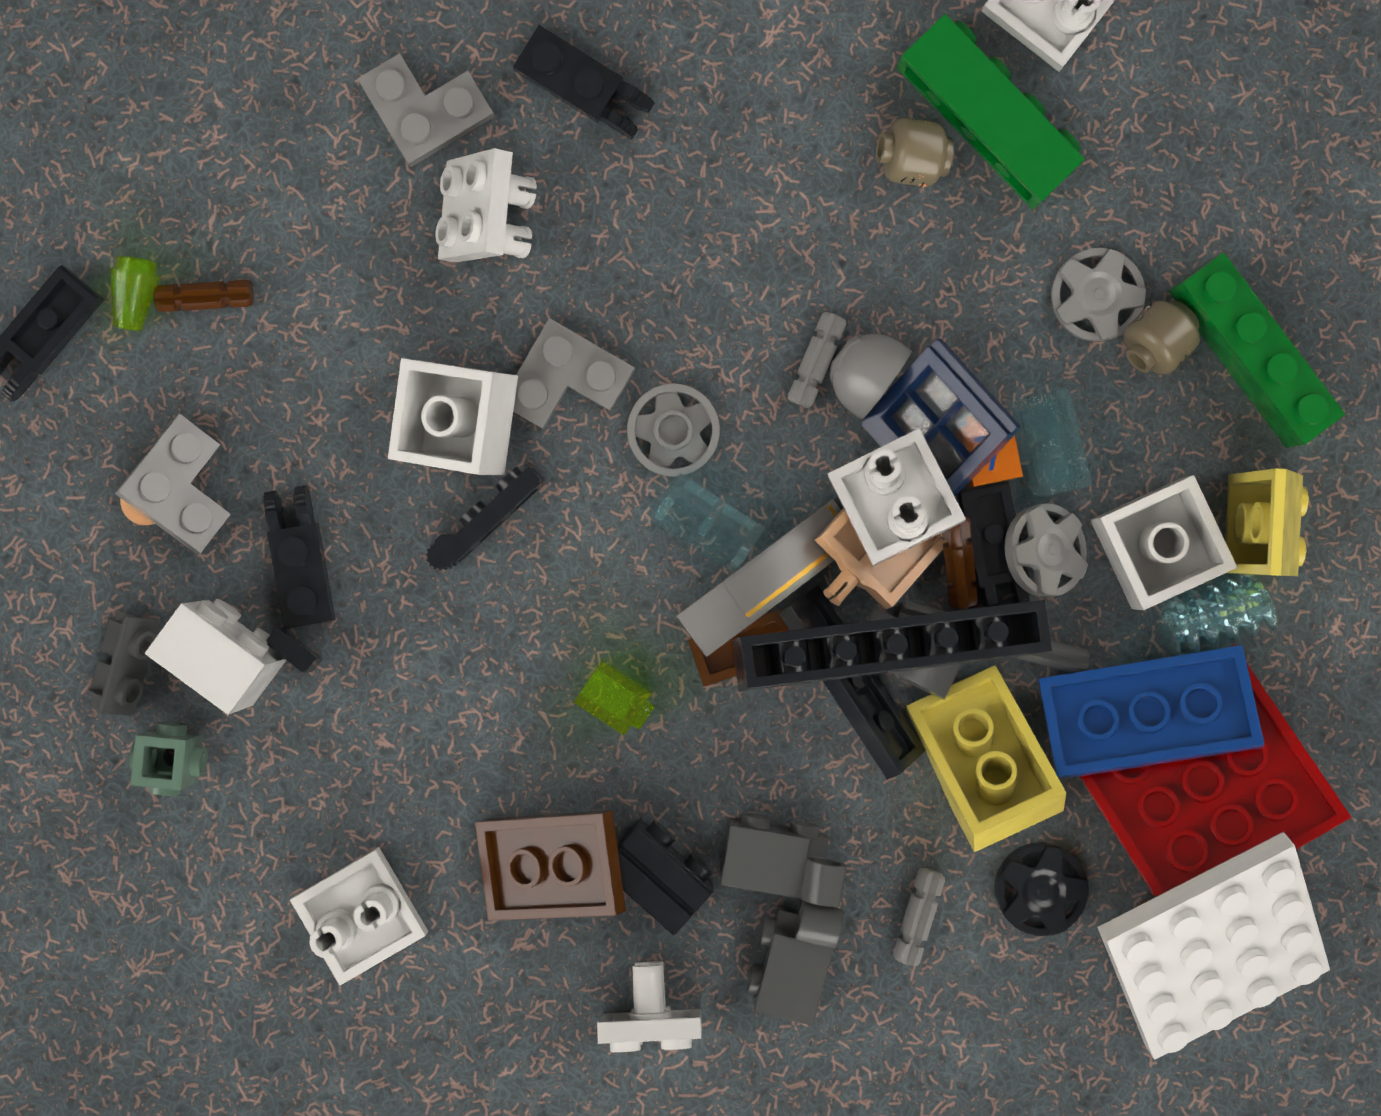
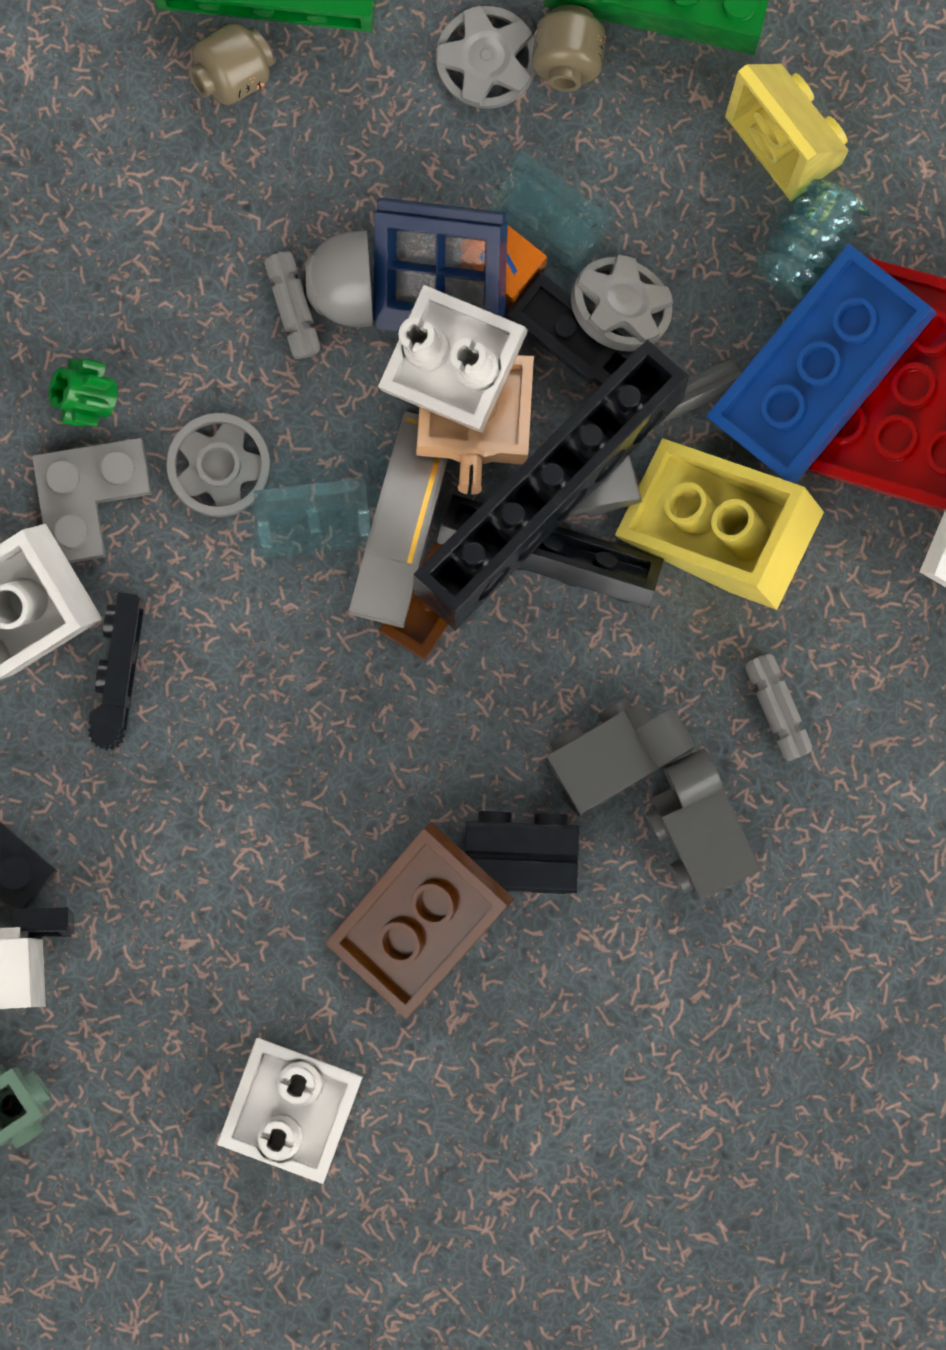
camera: 40 degrees left, 5 degrees down
(616, 698) = (357, 731): clear neon green brick -> none
(619, 303) = (82, 392): none -> green gear
(650, 1016) = (614, 978): white plate -> none
(960, 566) = (554, 371): reddish brown axle -> none
(1041, 889) = (864, 596): black wheel -> none
(1163, 543) = (712, 215): white brick -> none

